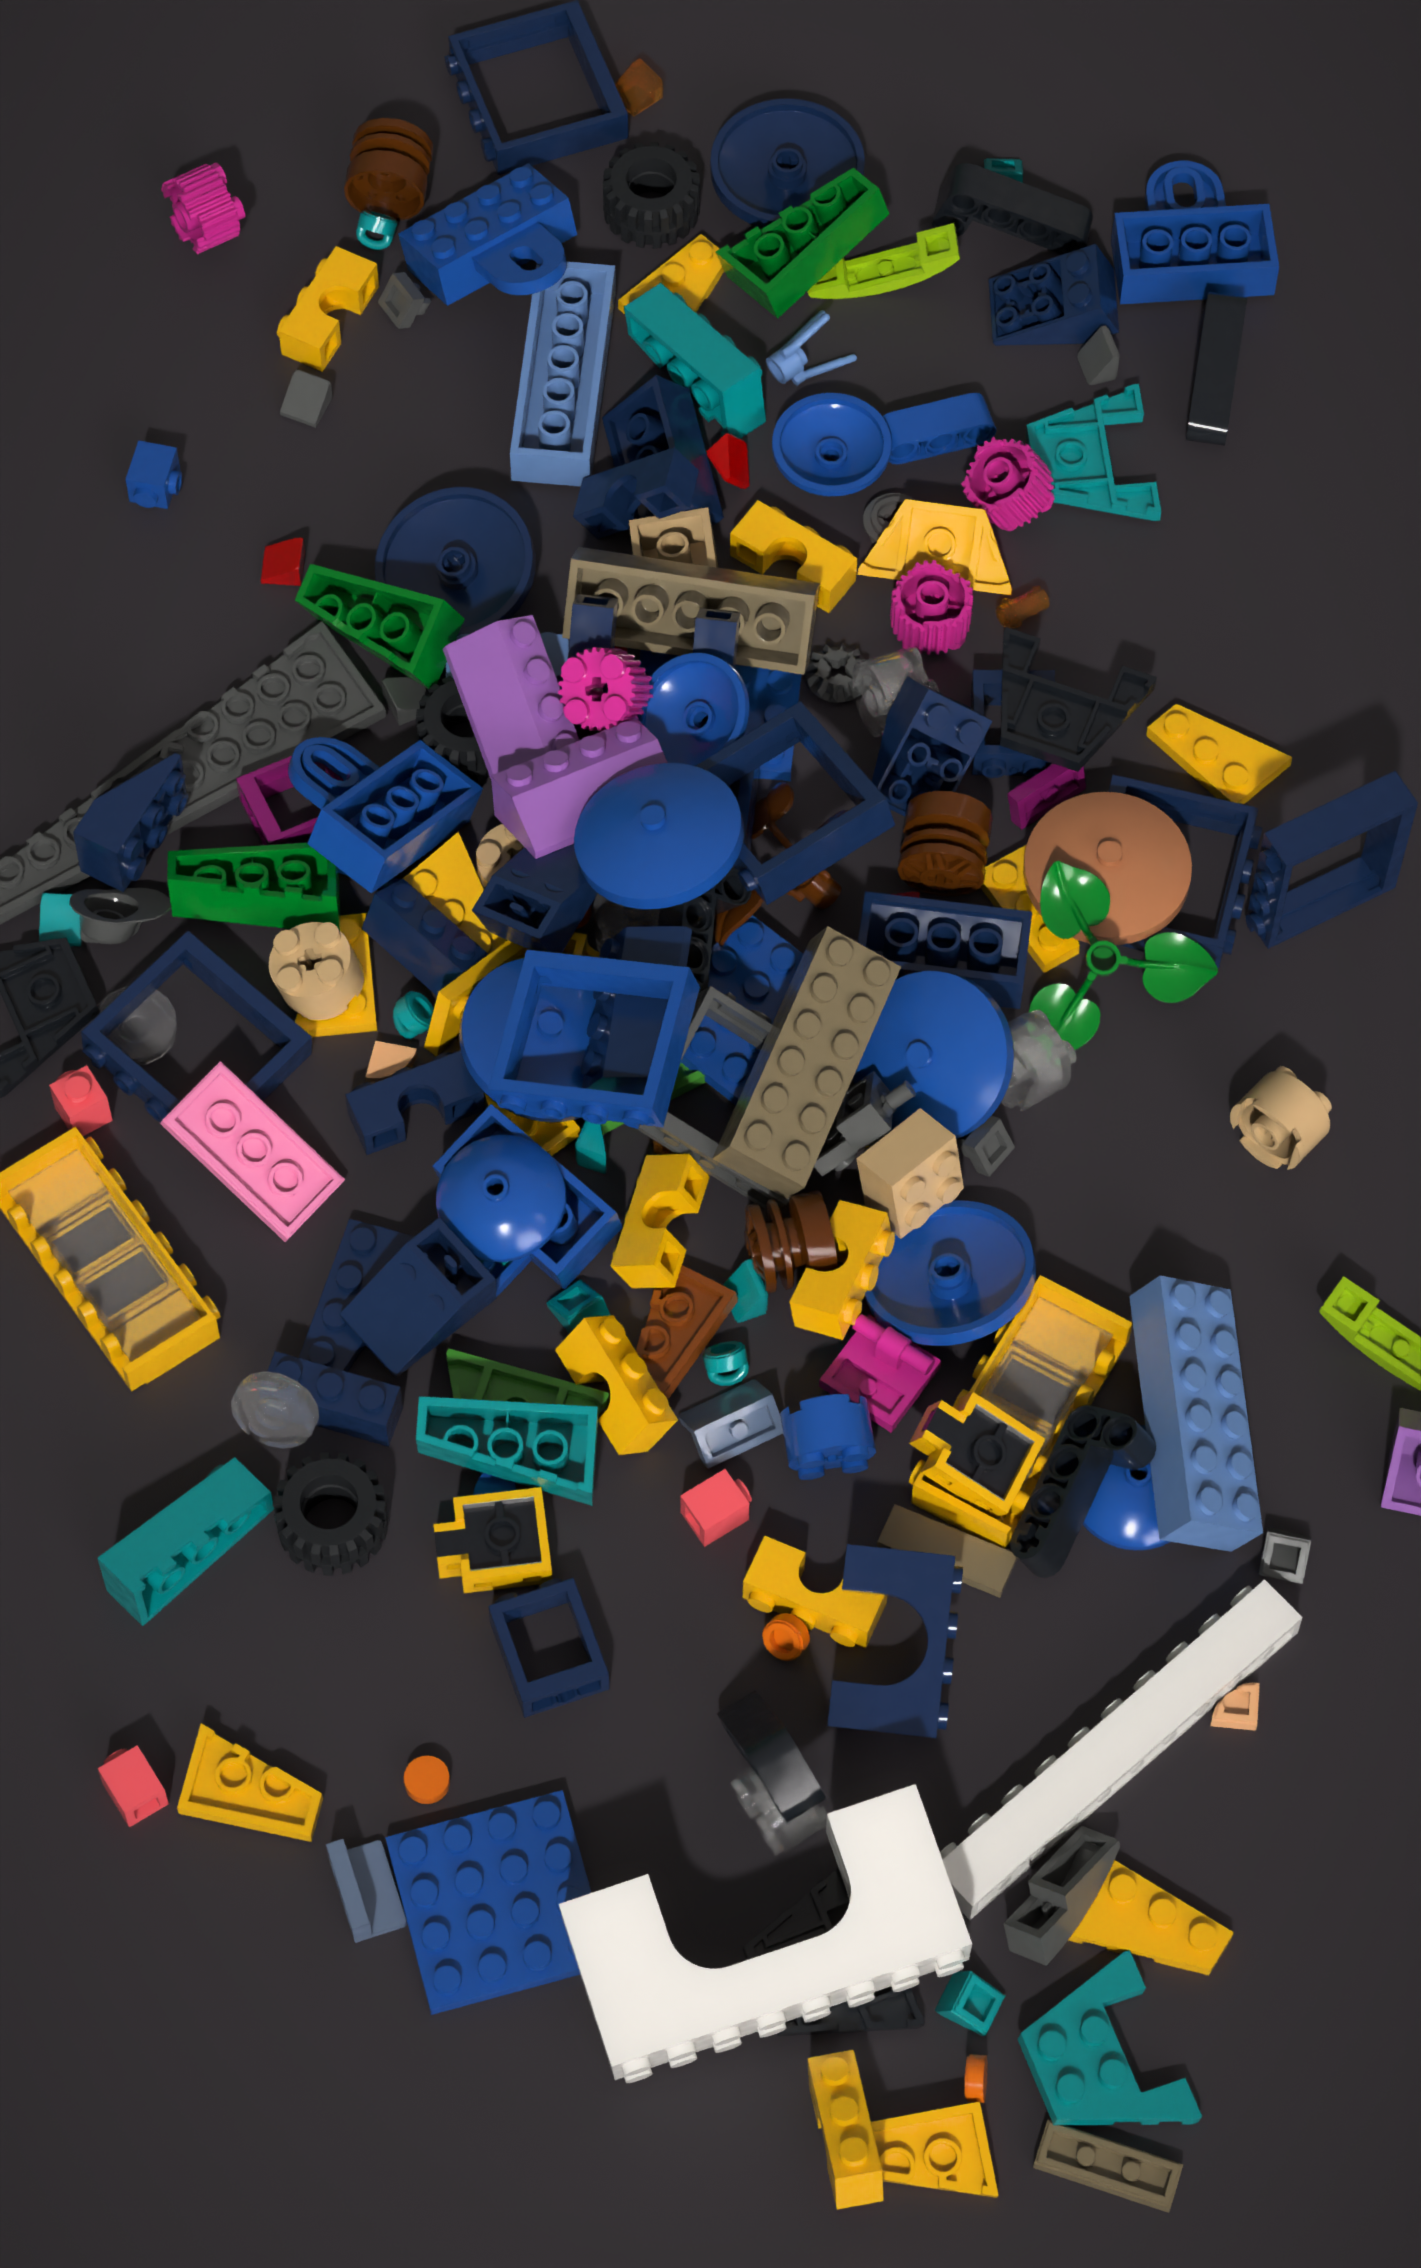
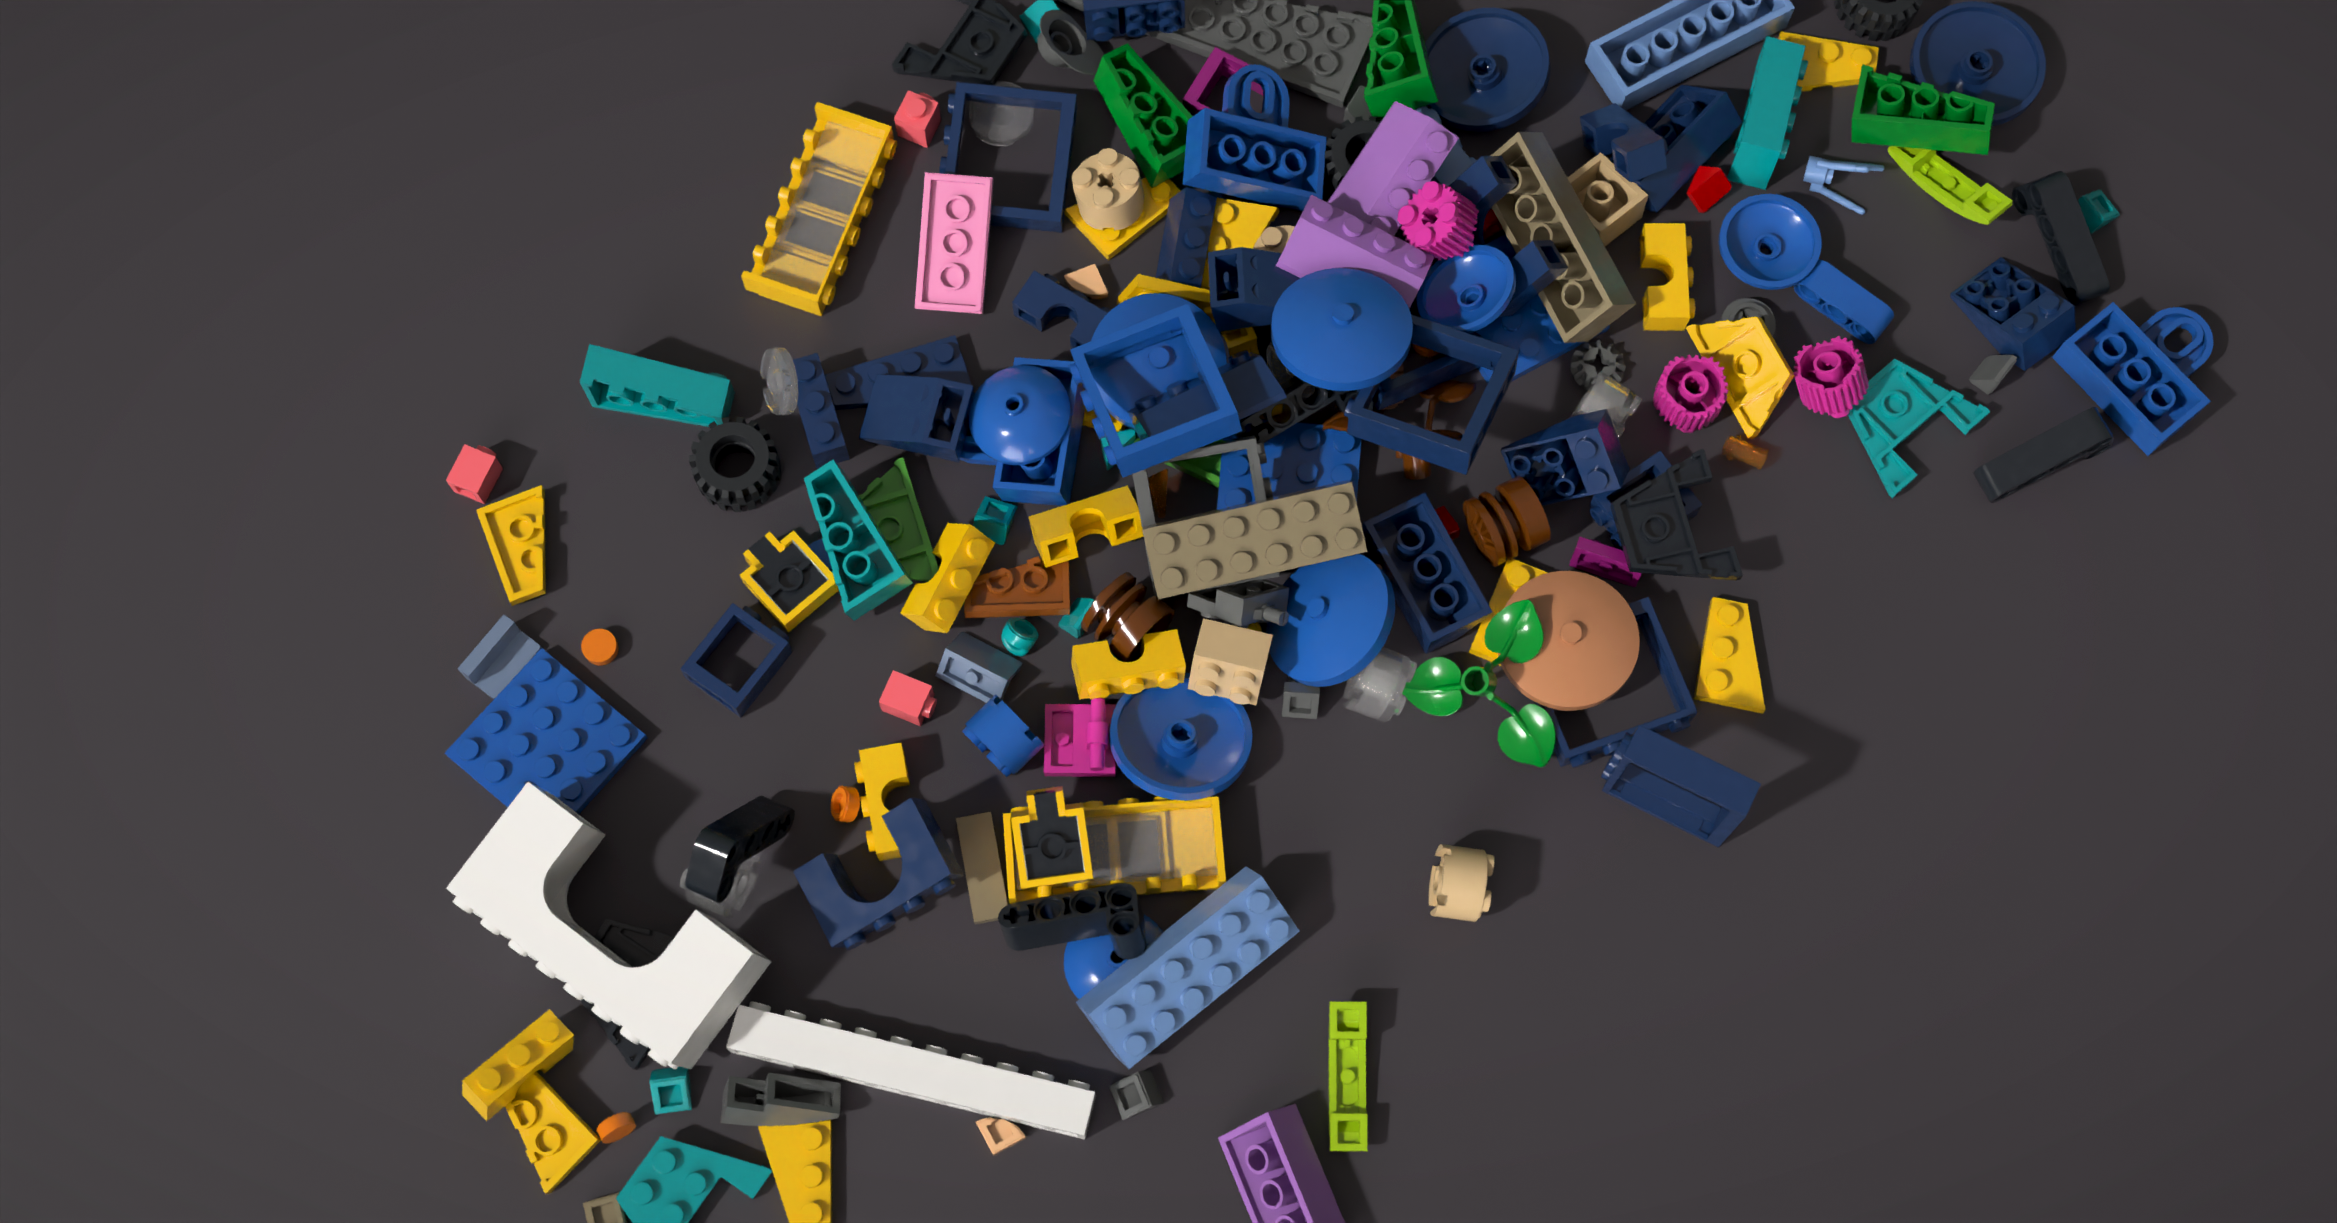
camera: 55 degrees right, 10 degrees up
(412, 1014) = (1128, 269): teal tile -> none

